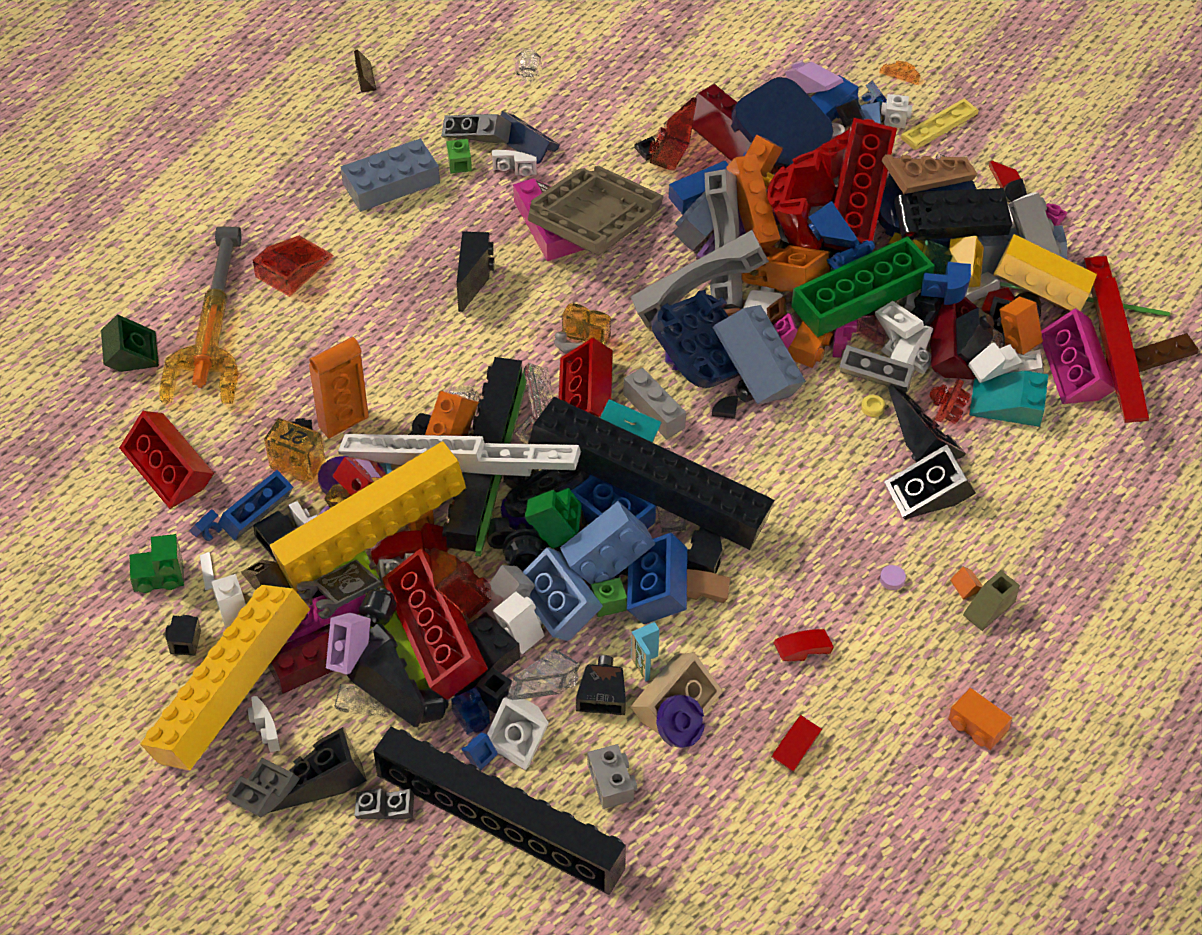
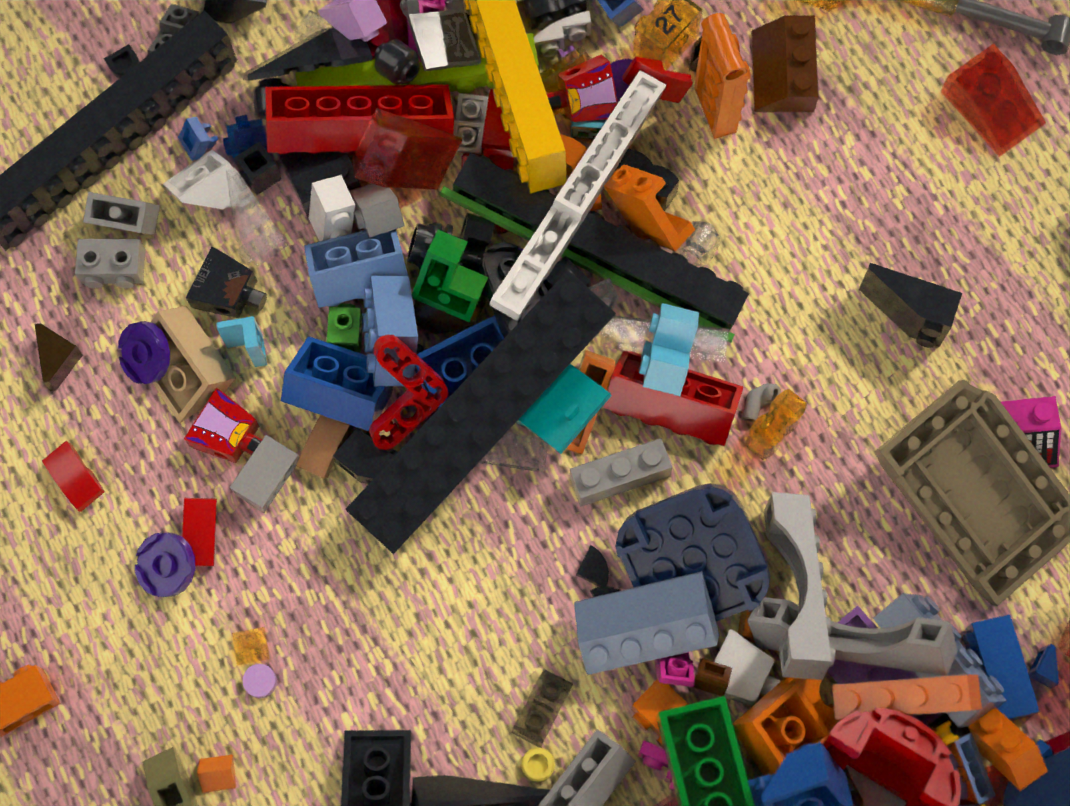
camera: 110 degrees right, 20 degrees up
(287, 382) = (785, 65): none -> reddish brown slope
(332, 447) = (676, 83): none -> red slope
(422, 835) = (122, 61): none -> black tile
(567, 384) = (667, 355): none -> medium azure brick
(568, 776) = (121, 213): none -> light grey brick
(645, 507) = (415, 395): none -> red beam
(690, 166) = (1045, 667): none -> blue slope
(706, 788) = (56, 356): none -> dark brown slope
(720, 650) = (223, 429): none -> torso
(743, 609) = (265, 473): none -> light grey brick
(828, 411) = (542, 708): none -> clear smoke slope
(838, 656) = (165, 564): none -> dark purple tile
(870, 592) = (250, 646): none -> clear yellow slope

